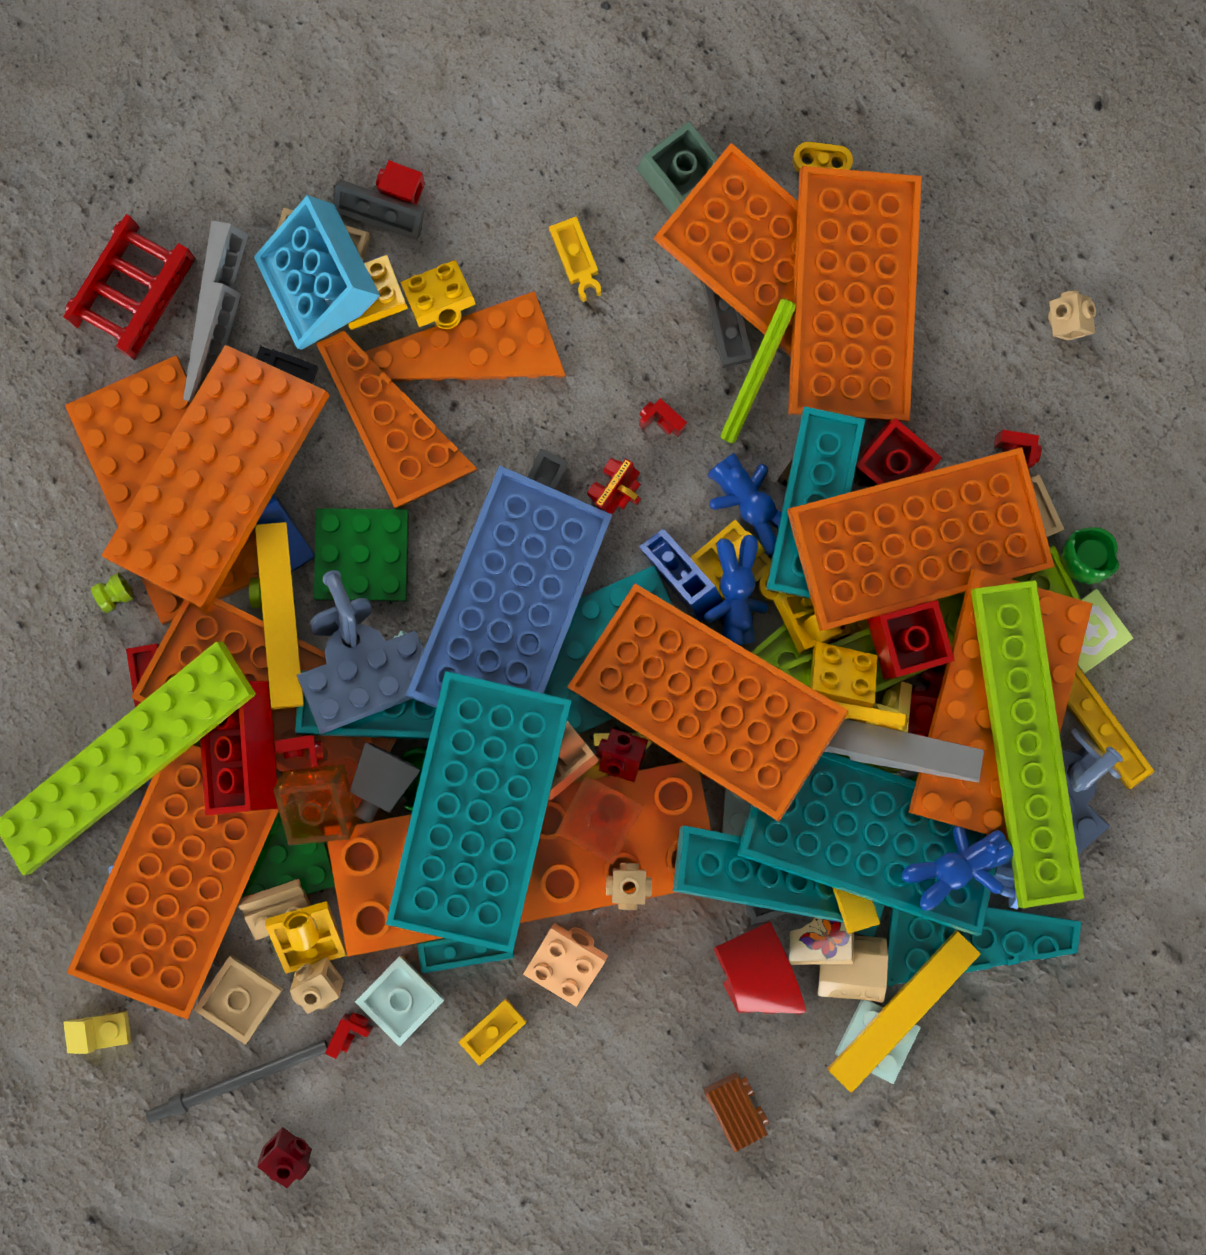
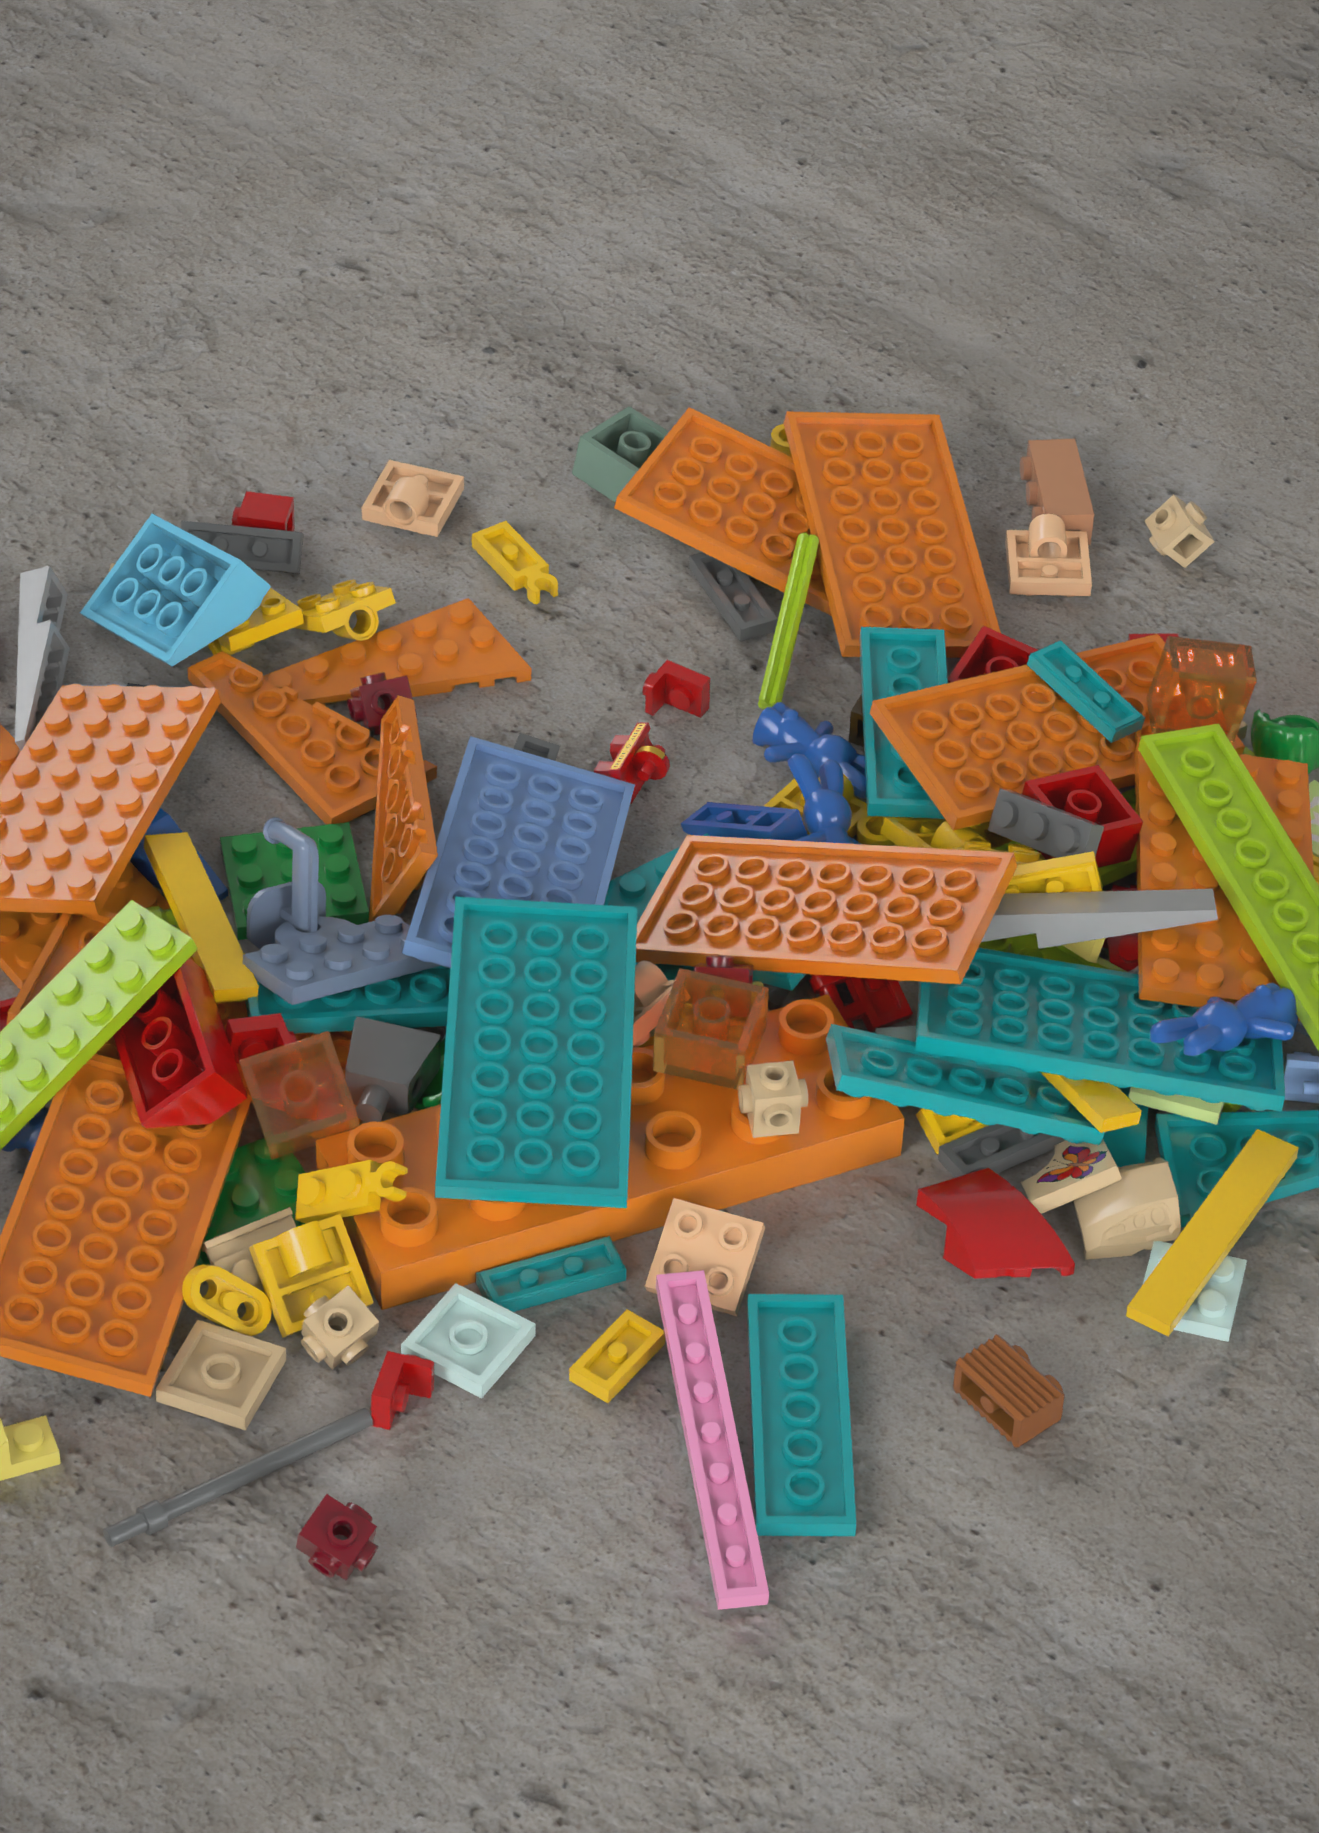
camera: 10 degrees left, 40 degrees down
(246, 950) = (223, 1299): none -> yellow plate
(334, 893) = (347, 1190): none -> yellow plate
(437, 535) = (403, 815): none -> orange wing
(449, 400) = (364, 701): none -> dark red brick
(514, 174) = (413, 498): none -> light nougat plate
(535, 1117) = (711, 1441): none -> bright pink plate
(598, 1102) = (800, 1415): none -> teal plate
(882, 662) = (1043, 826): none -> dark grey plate
(951, 510) = (1086, 691): none -> teal tile
(967, 326) = (1048, 559): none -> light nougat plate
(993, 253) = (1057, 483): none -> nougat brick
(1035, 534) = (1201, 685): none -> clear orange brick

